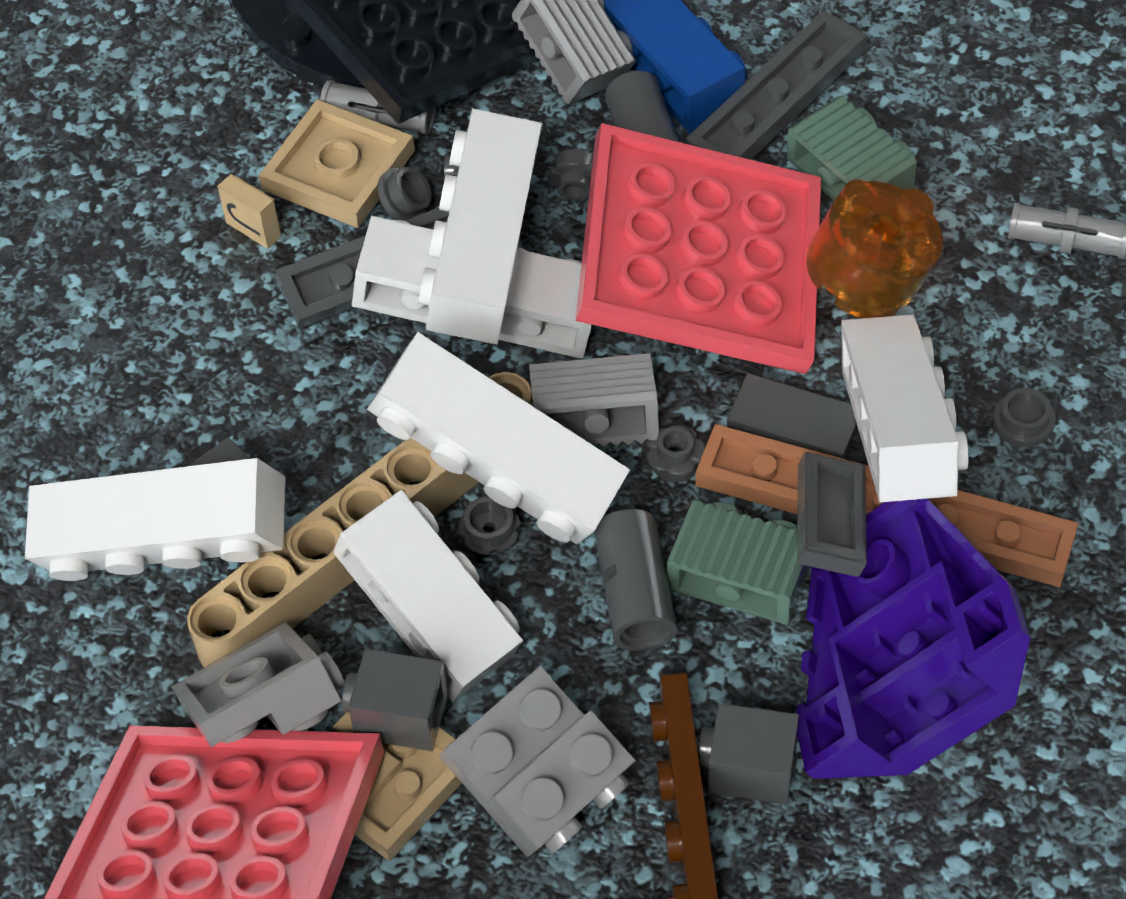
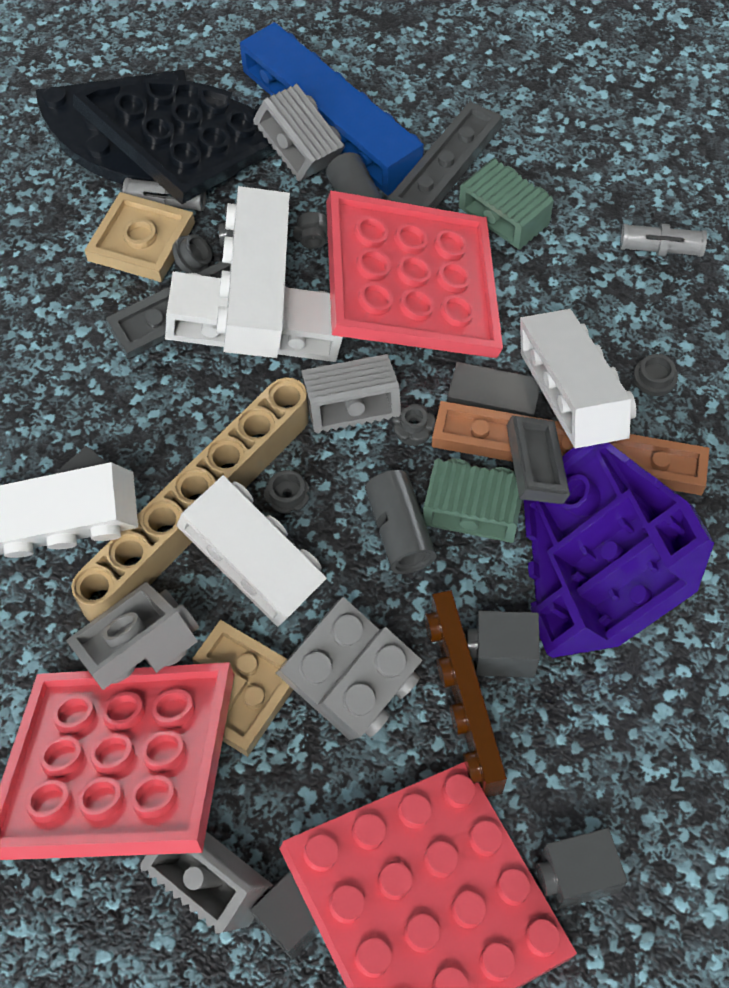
camera: 10 degrees left, 5 degrees up
(249, 210) = (80, 276): tan tile -> none
(397, 698) = (238, 633): dark grey brick -> none
(497, 441) = (287, 429): white brick -> none
(875, 247) = (535, 263): clear orange brick -> none

